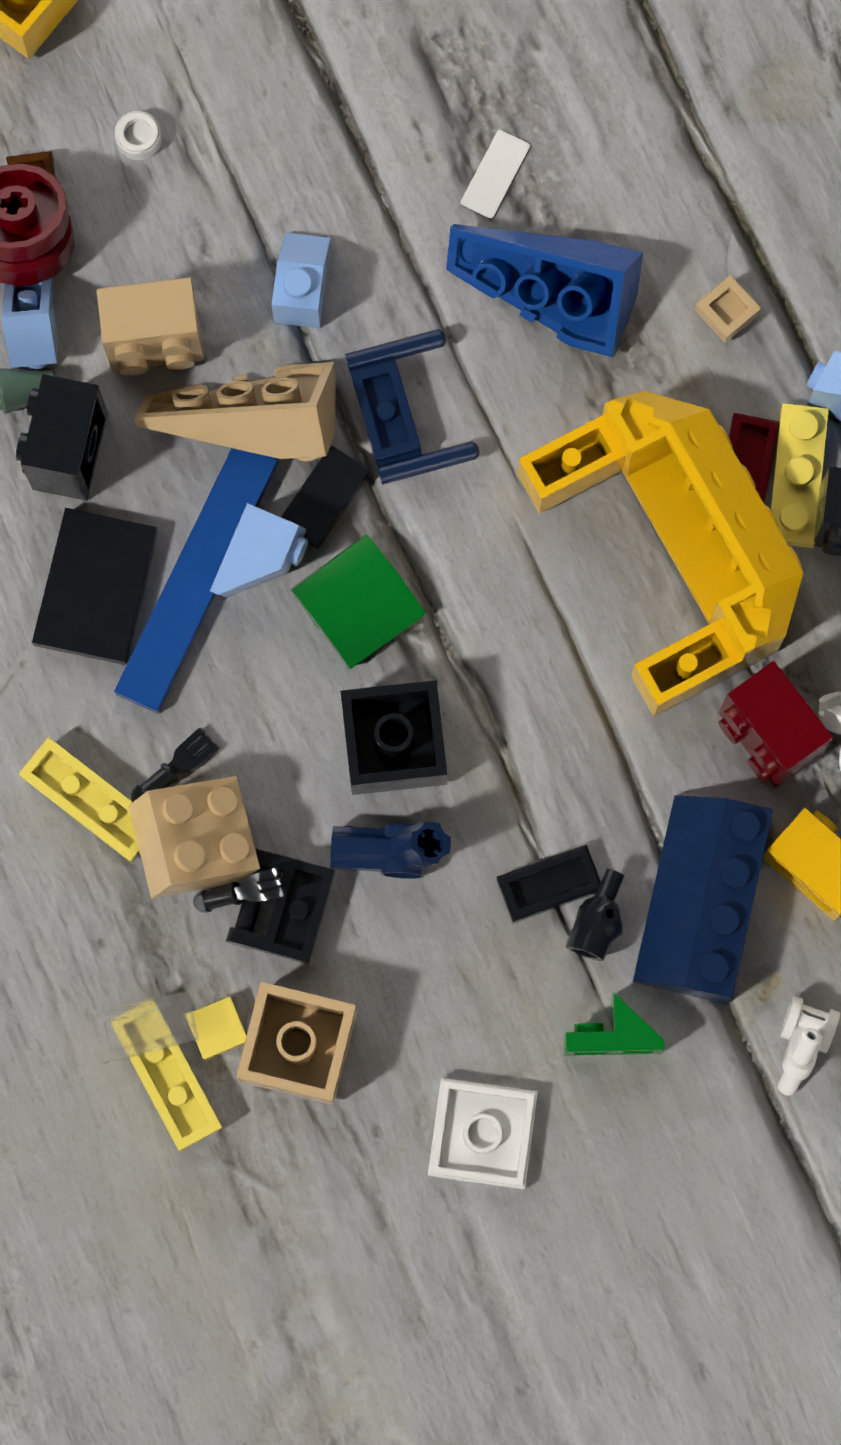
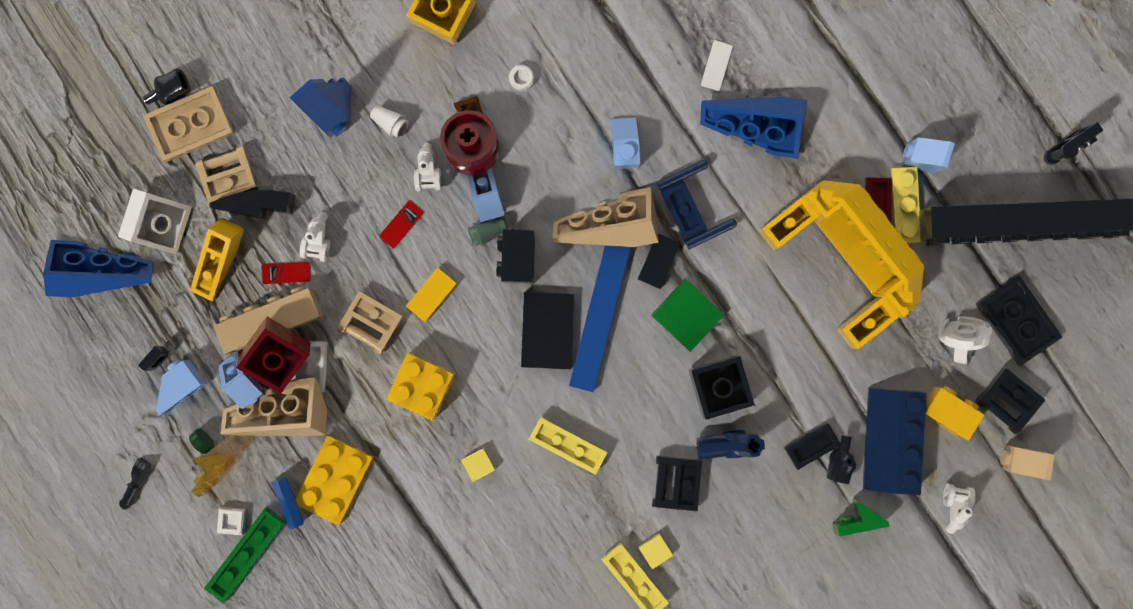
camera: 10 degrees left, 10 degrees up
(145, 1027) = (621, 561): clear tile -> none
(150, 326) = (552, 187): tan brick -> none
(186, 758) = (613, 412): black piece -> none
(193, 836) = (627, 459): tan brick -> none
(255, 888) = (664, 477): black piece -> none
(259, 551) = (633, 299): light blue slope -> none
(297, 1043) = (700, 555): tan brick -> none
(482, 1133) = (800, 580): white tile -> none
(727, 309) = (855, 121): tan plate -> none
(773, 725) = (918, 347): dark red brick -> none

